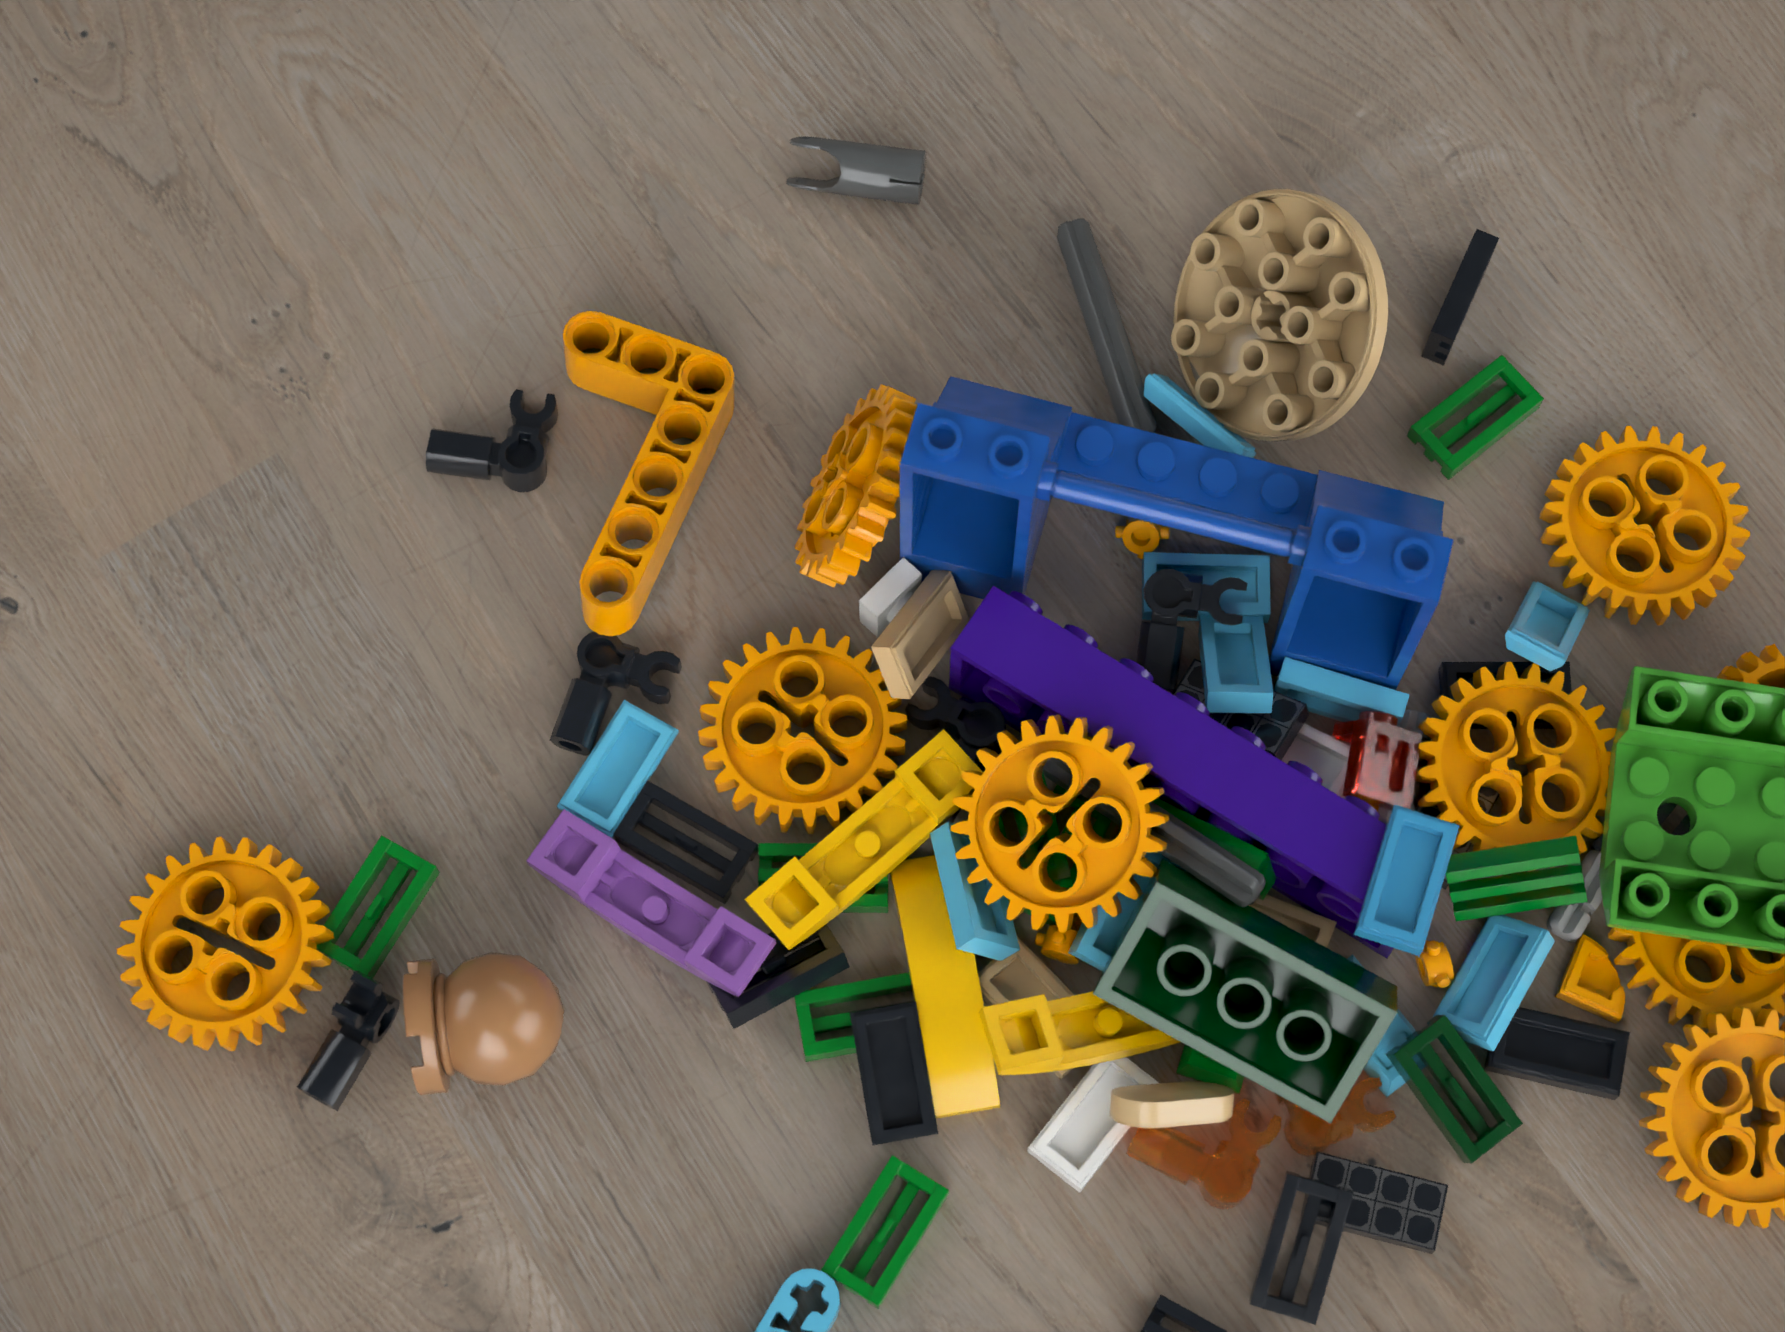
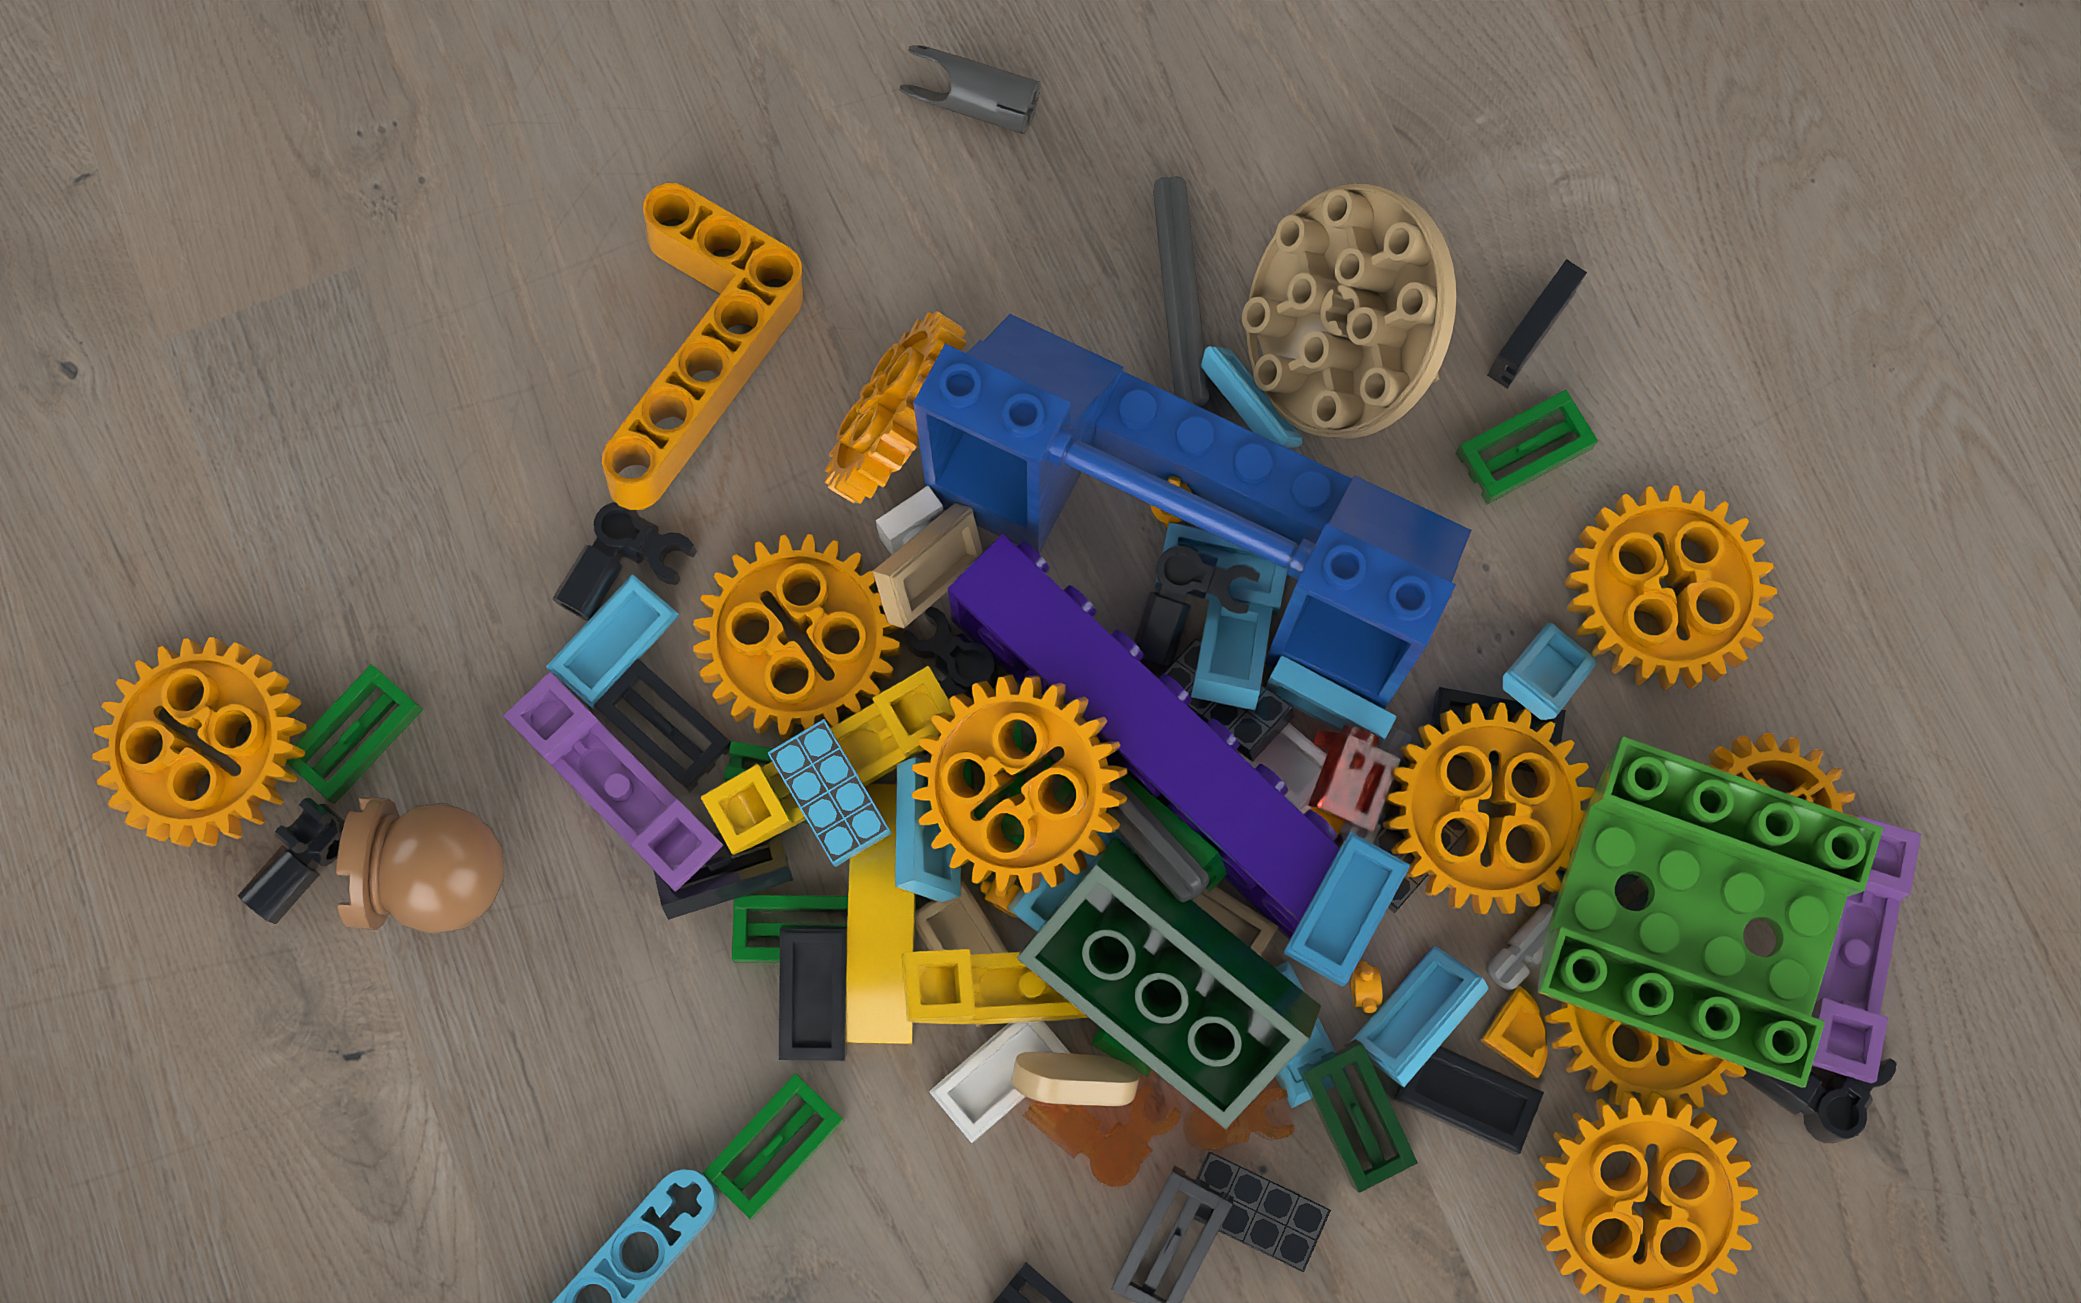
camera: 10 degrees right, 5 degrees up
(517, 459) = (580, 315): black bar -> none
(871, 872) = (829, 793): none -> medium azure tile
(1516, 888) = (1463, 920): green tile -> none

